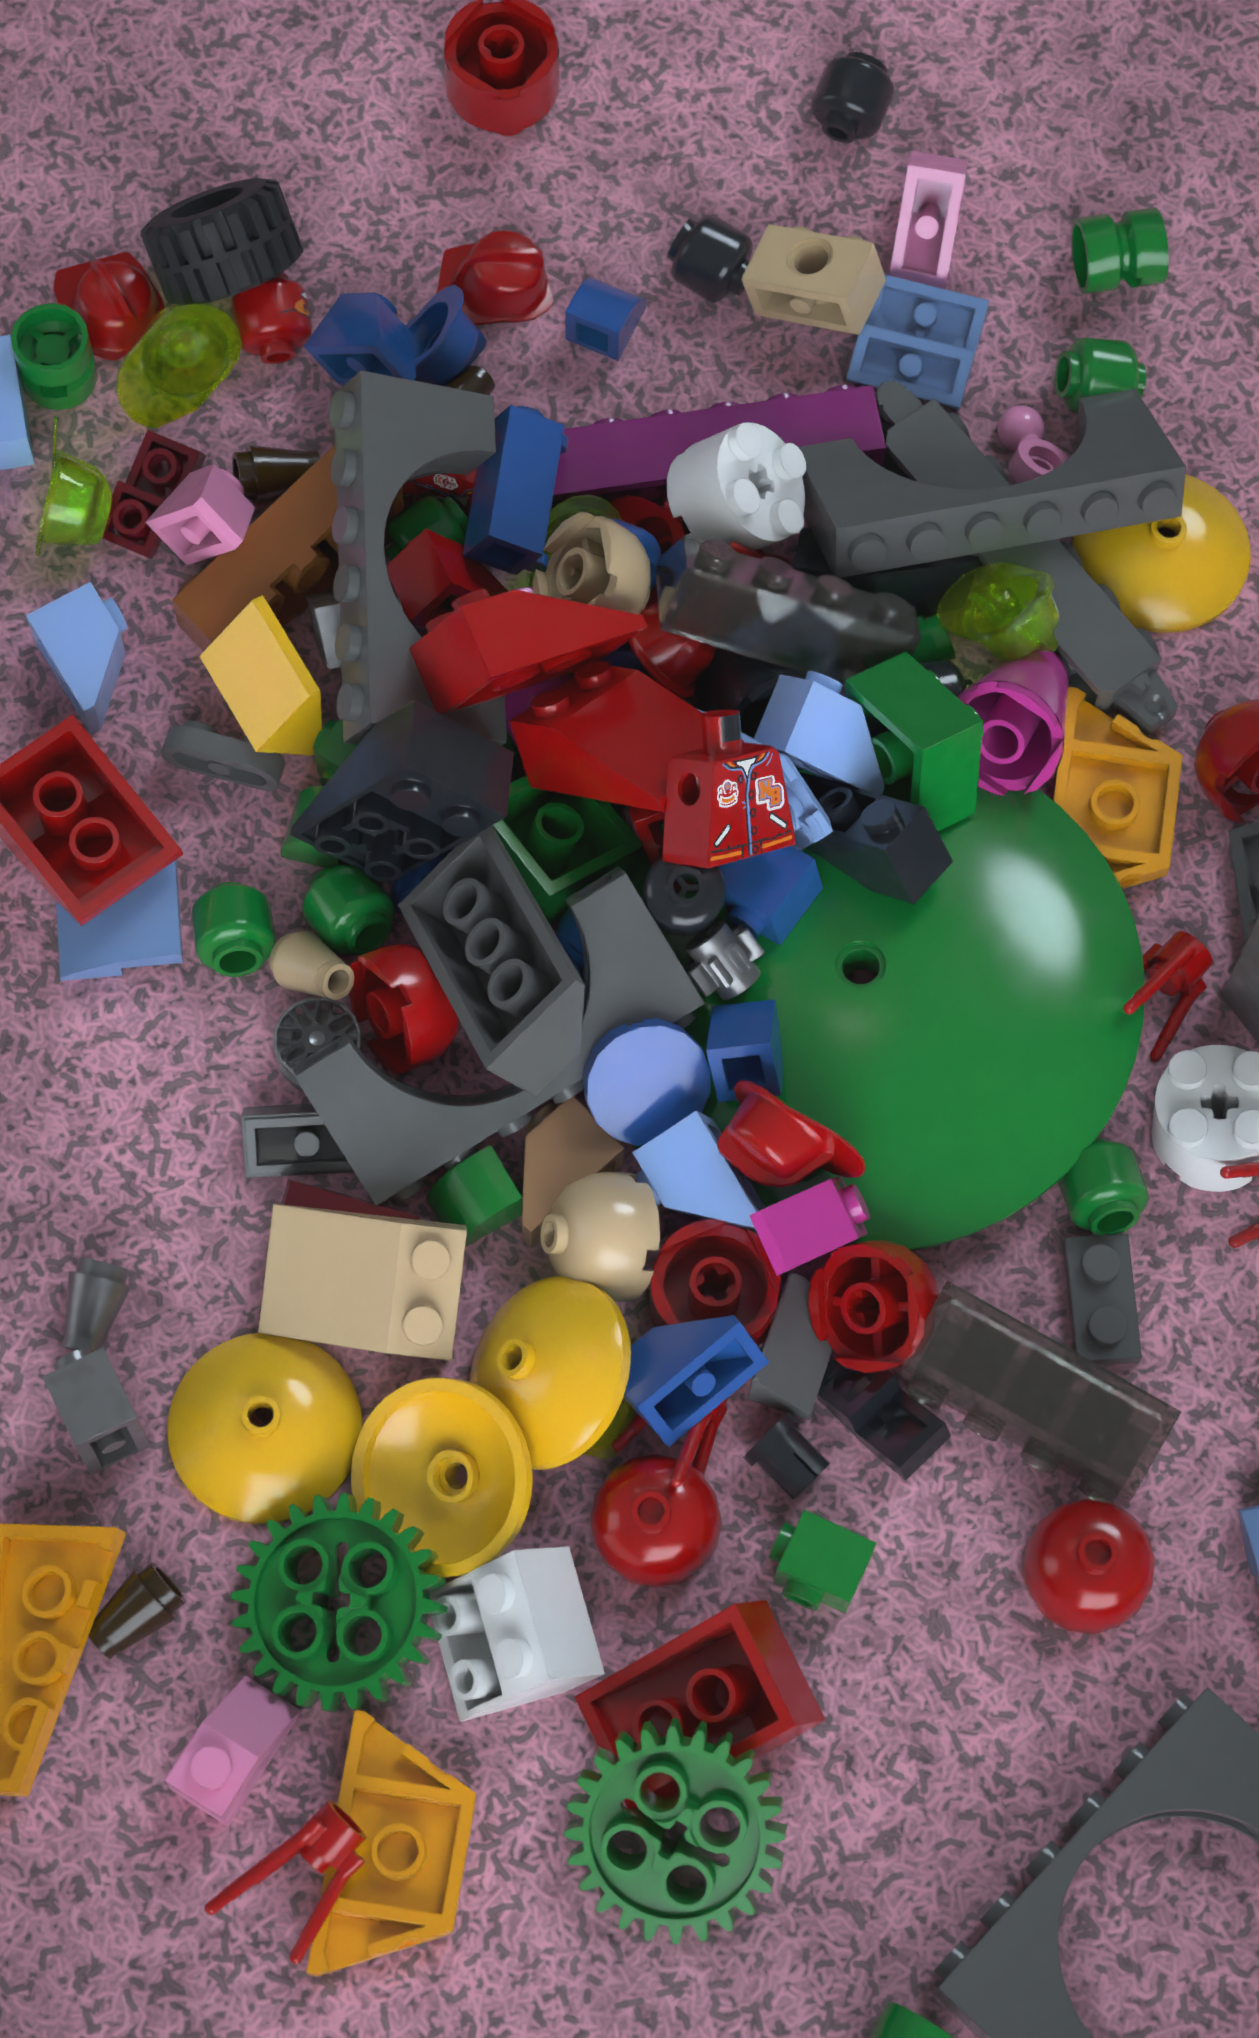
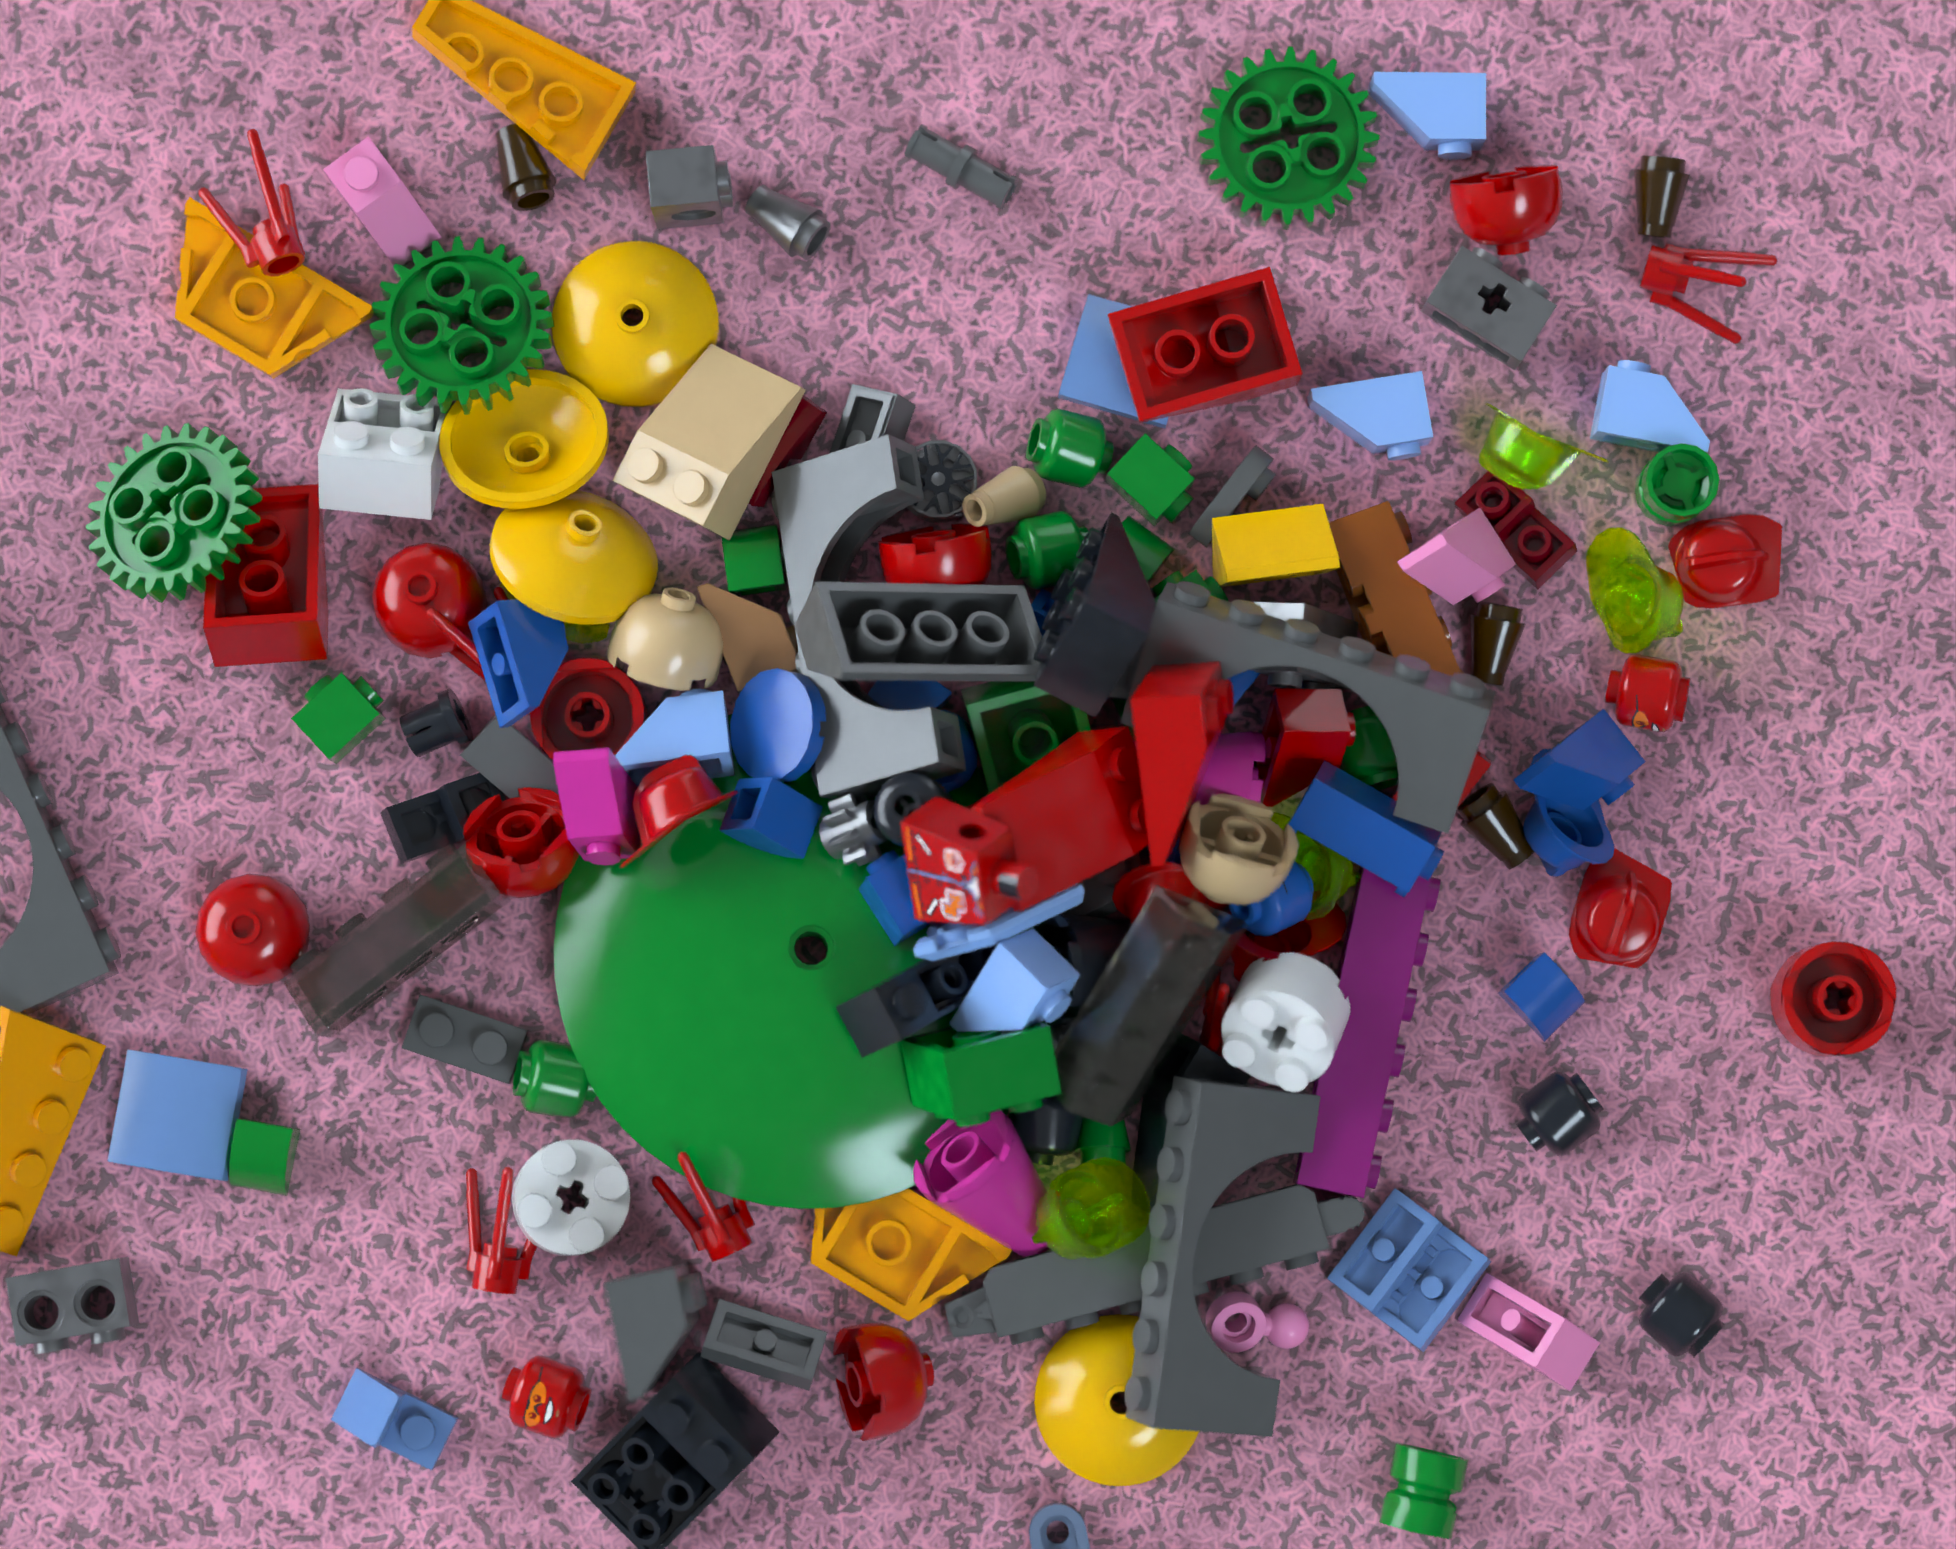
camera: 110 degrees right, 15 degrees up
(222, 241) = (1725, 667): black tyre -> none
(235, 836) = (1153, 480): none -> green brick
(814, 278) = (1469, 1209): tan brick -> none
(1097, 368) = (1306, 1416): green head -> none

